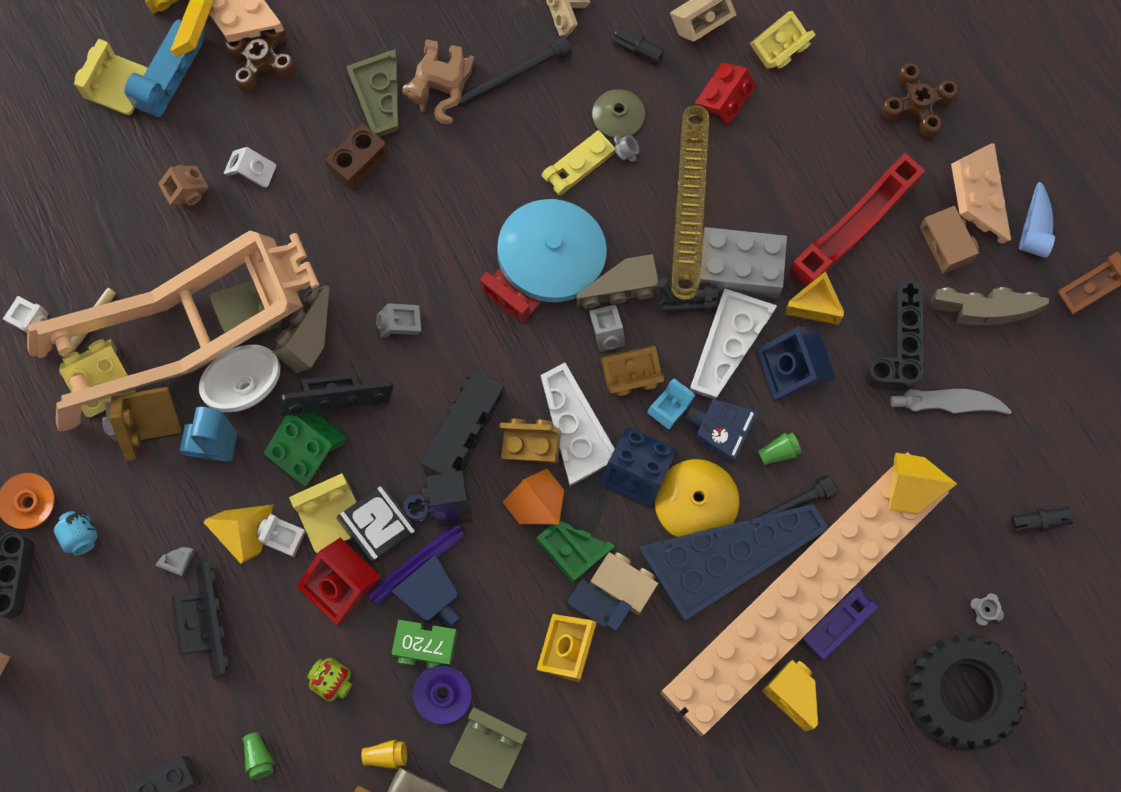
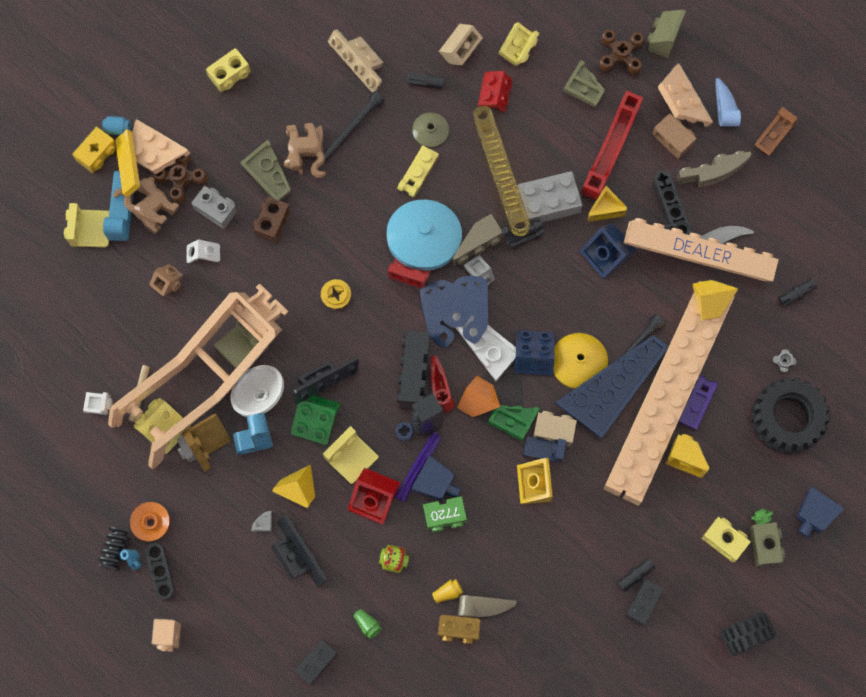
camera: 20 degrees left, 0 degrees up
(75, 533) = (191, 529): medium azure head -> none
(205, 80) = (148, 207): none -> medium nougat animal
(280, 535) = (324, 481): white bracket -> none
(288, 113) = (214, 207): none -> light grey brick
(305, 337) = (287, 349): dark tan slope -> none
(376, 524) = (383, 450): tile -> none
(393, 277) = (339, 286): none -> yellow gear
(399, 320) = (343, 316): light grey bracket -> none
(442, 708) = (475, 547): dark purple dish -> none
(488, 748) = (510, 562): olive bracket -> none
(489, 465) = (440, 385): none -> red piece
(530, 441) = (460, 362): pearl gold bracket -> none
(557, 351) = (455, 298): none -> dark blue piece
(626, 147) = (445, 150): light grey plate -> none
(632, 370) = (506, 293): pearl gold bracket -> none
(671, 404) = (540, 305): medium azure bracket -> none
(722, 428) = (578, 308): dark blue torso -> none
(730, 337) = (560, 248): white wing -> none
(781, 449) = (619, 308): bright green cone -> none
(850, 128) = (584, 86): none -> olive wing
(926, 411) = (701, 251): none -> light nougat brick
(991, 95) = (666, 32): none -> olive slope

